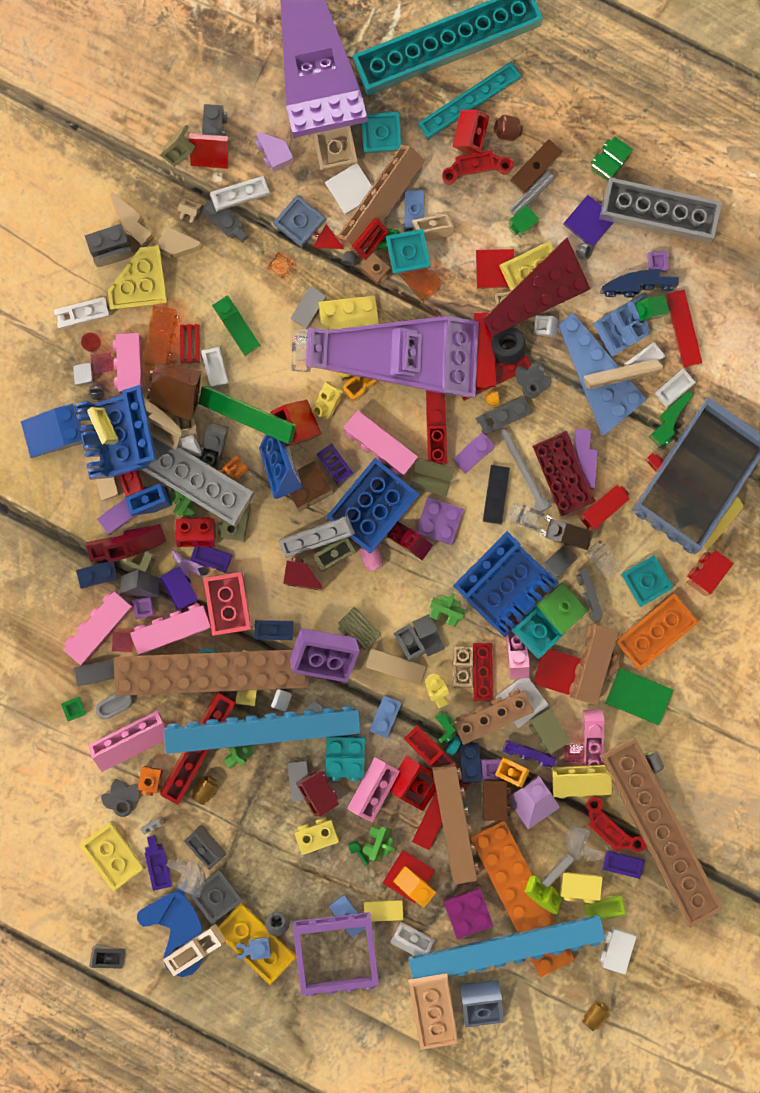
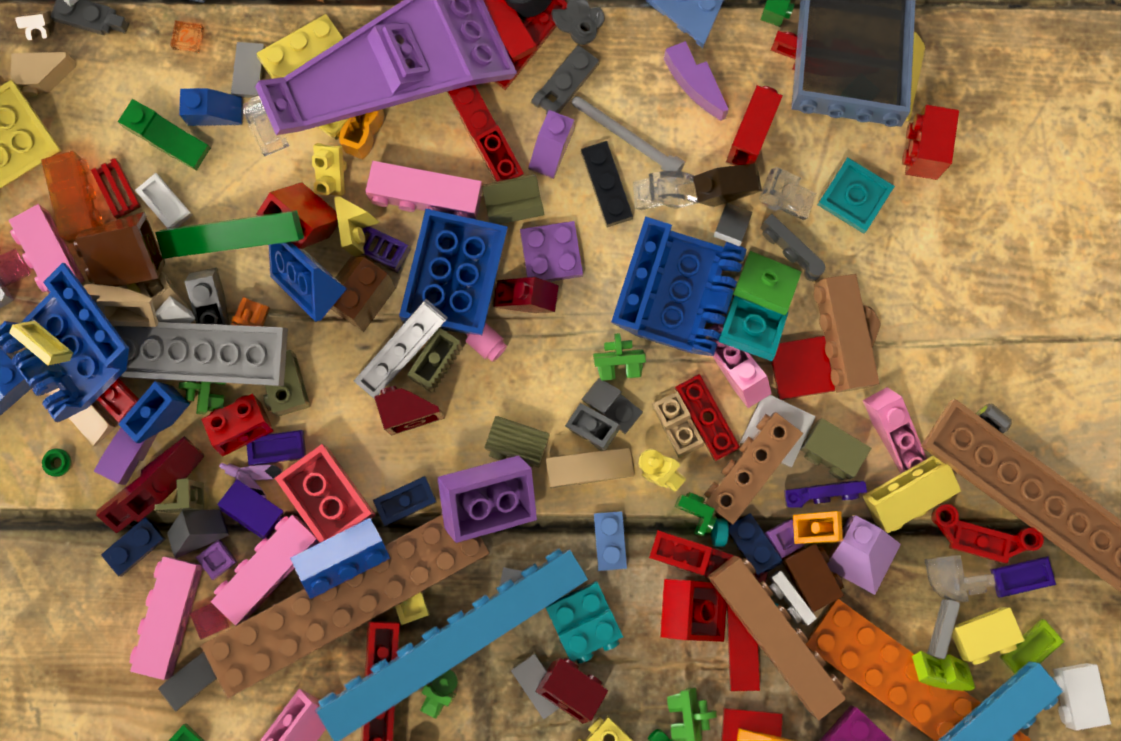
camera: 25 degrees left, 5 degrees down
(68, 499) = (50, 457): none -> green plate
(96, 396) = (21, 313): dark grey hinge -> none
(113, 705) = (238, 712): light grey tile -> none
(219, 646) = (340, 558): none -> brick
(273, 322) = (210, 107): none -> blue slope
(281, 700) = (461, 589): white slope -> none
(324, 440) = (351, 222): none -> light yellow slope
(373, 789) = (644, 647): bright pink brick -> none
(474, 798) = (798, 608): none -> white plate
(492, 398) = (540, 66): light orange hinge -> none
(564, 473) = (680, 113): dark red tile -> none
(574, 753) = (882, 462): clear pink plate -> none
(639, 696) = (924, 347): green tile -> none
(656, 632) = (903, 253): orange plate -> none

